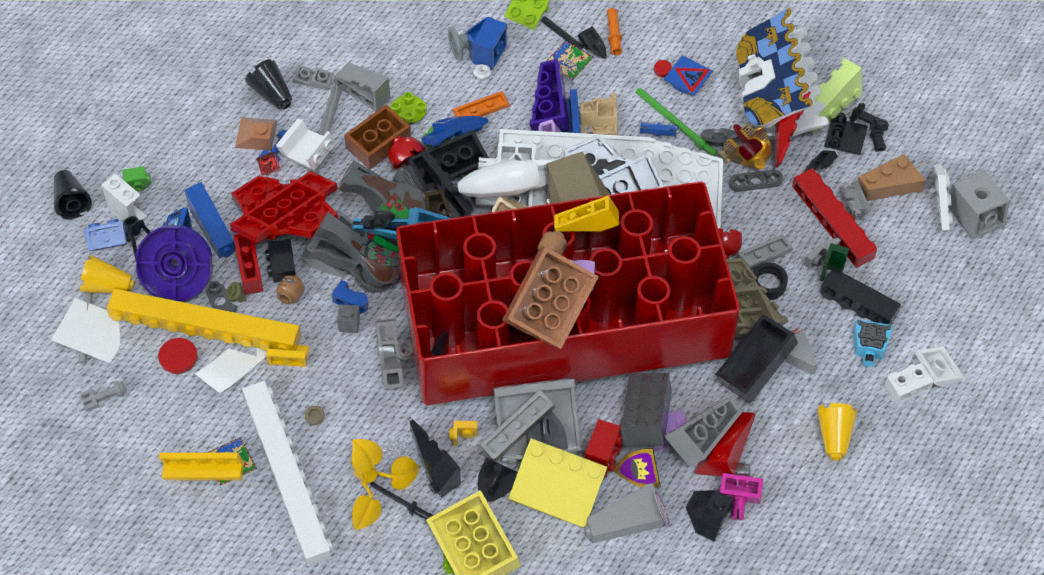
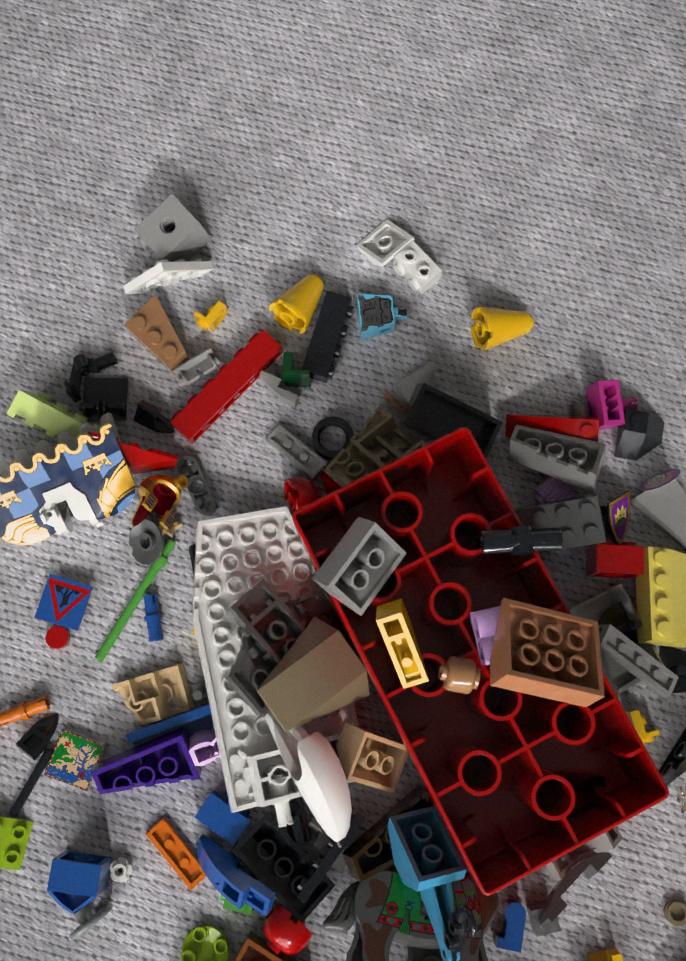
camera: 105 degrees left, 20 degrees up
(358, 313) = (555, 904): none -> dark grey slope
(490, 136) = (218, 817): none -> blue brick
(638, 314) = (521, 540): none -> black piece
(651, 207) = (359, 565): none -> light grey slope
(896, 284) = (298, 304): none -> yellow cone
(898, 222) = (215, 315): none -> yellow bracket

